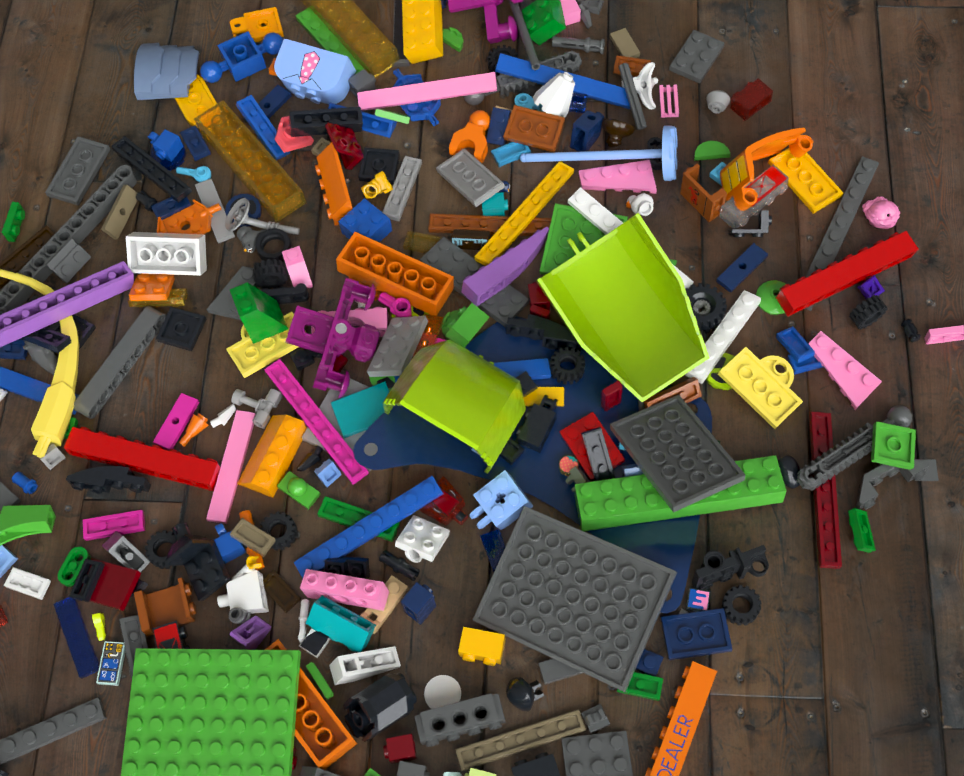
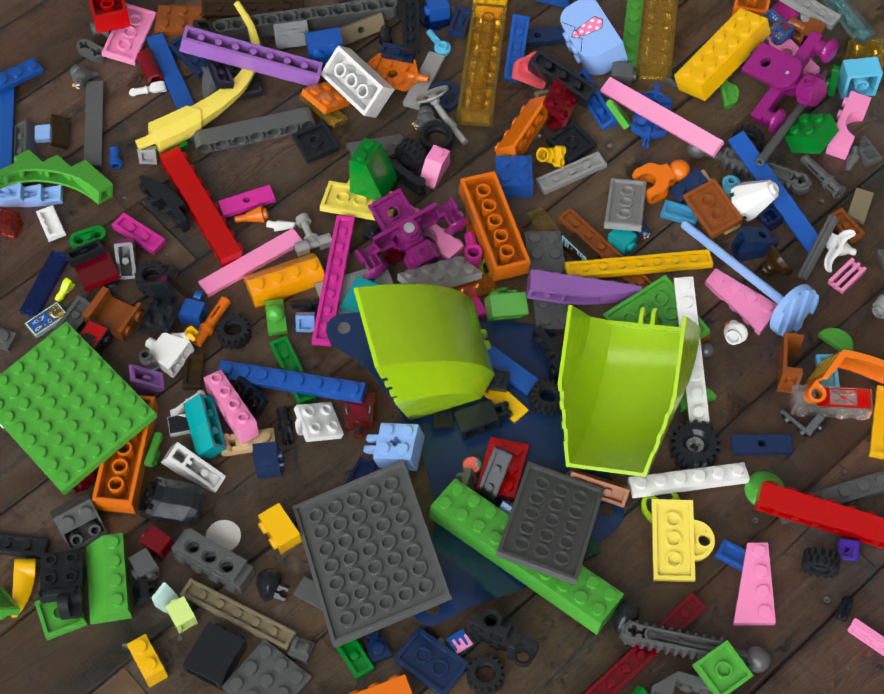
camera: 40 degrees right, 5 degrees down
(108, 247) = (322, 44): none -> blue brick
(252, 537) = (210, 318): dark tan tile -> none
(611, 396) = (551, 443): dark red tile -> none
(795, 344) = (737, 535): blue tile -> none

